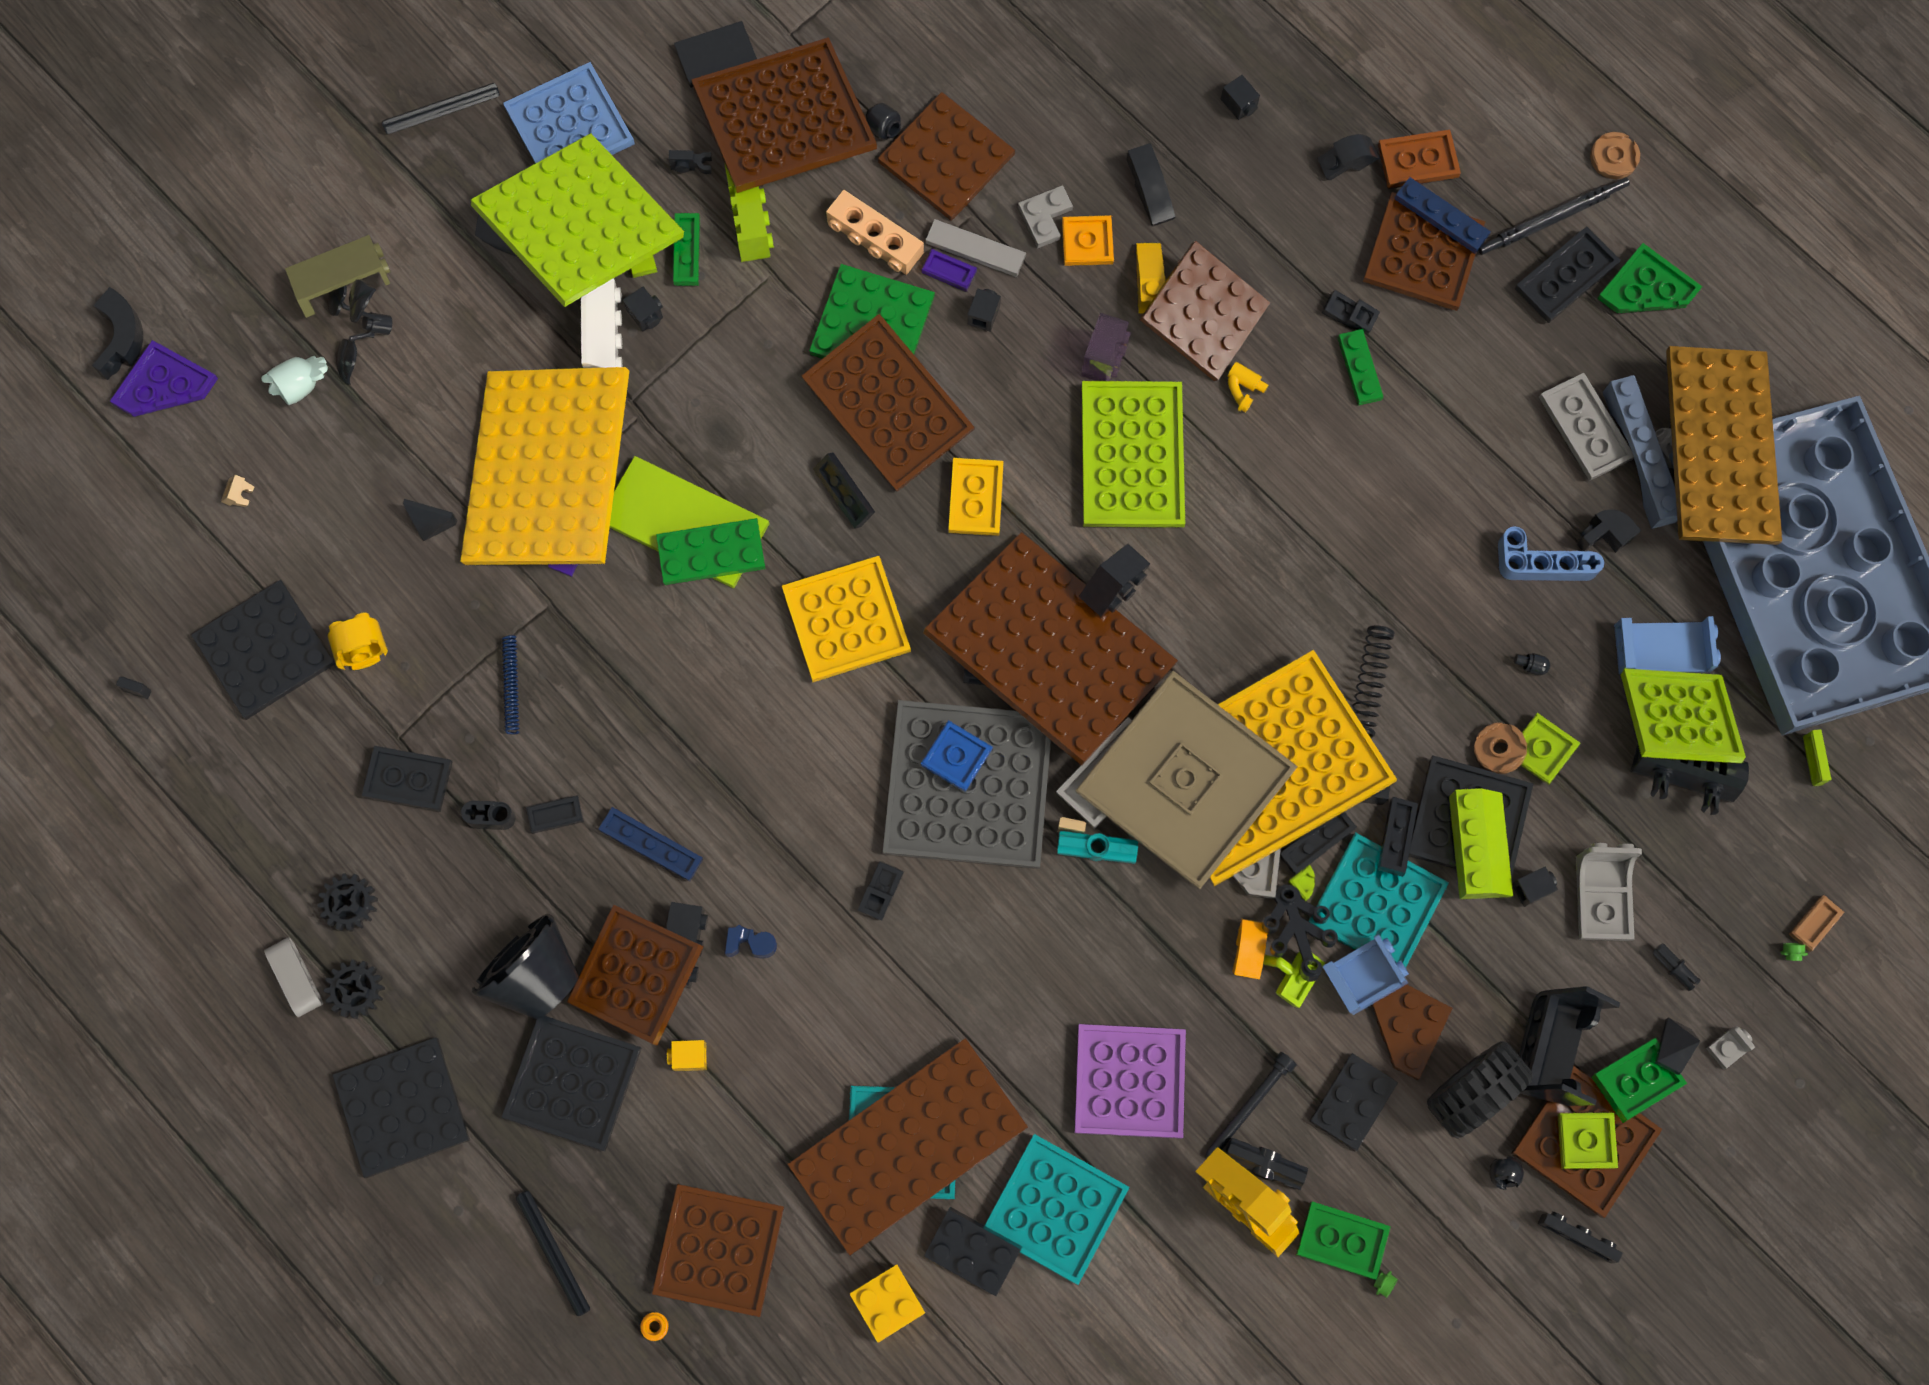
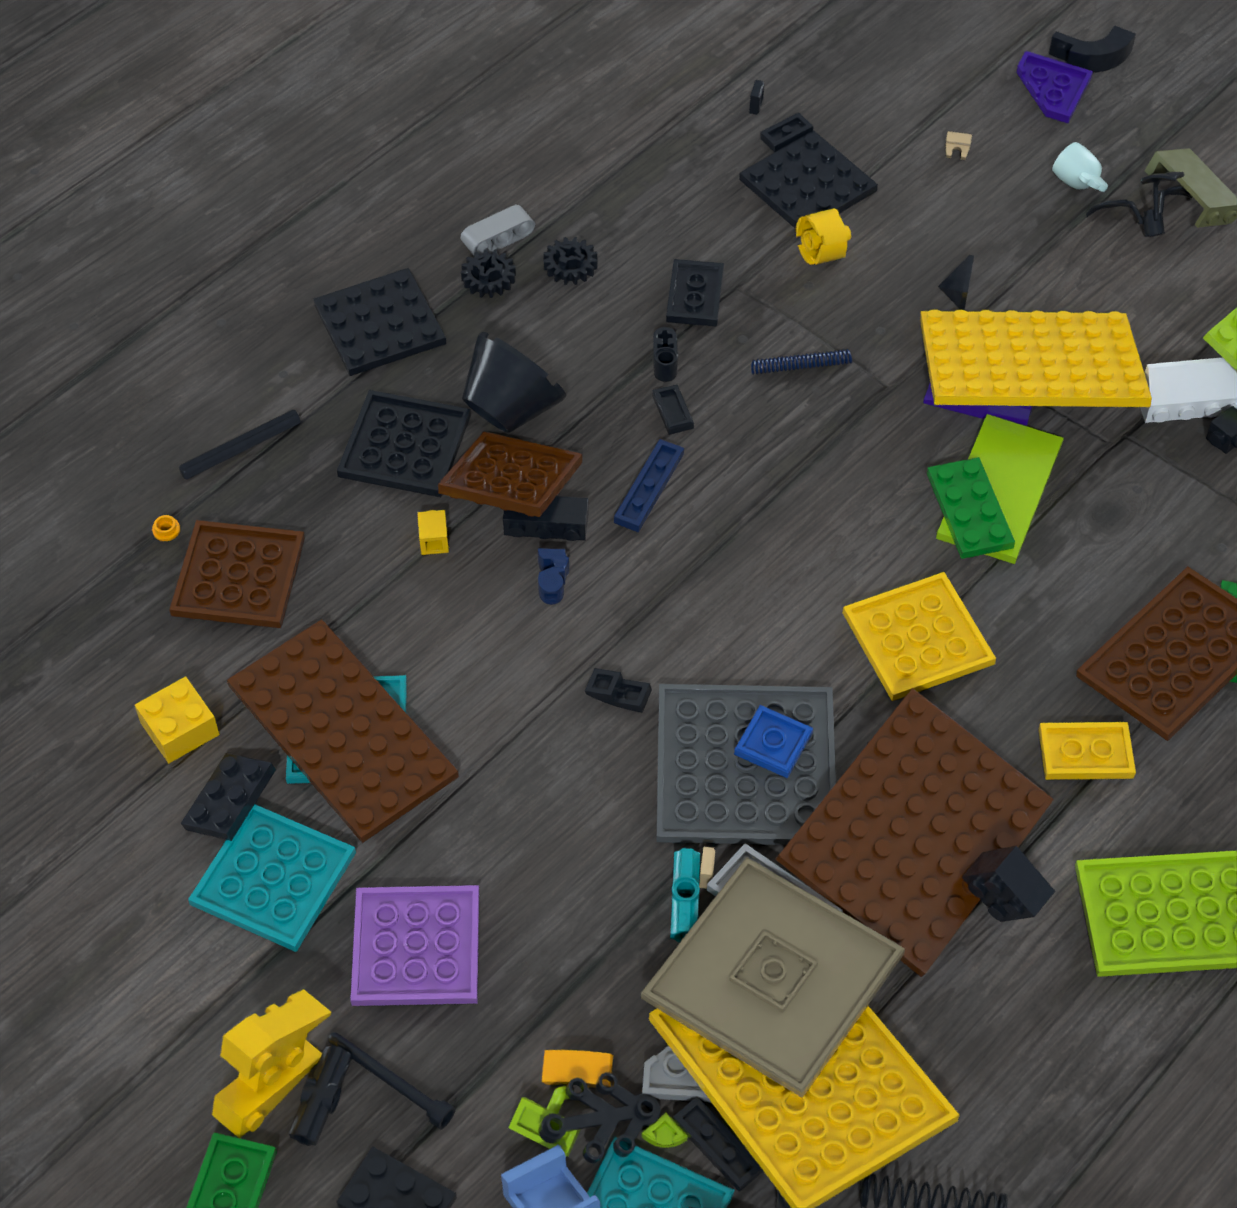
camera: 90 degrees right, 20 degrees down
(190, 662) = (786, 132): none -> black plate
(844, 490) = (1065, 622): black plate -> none

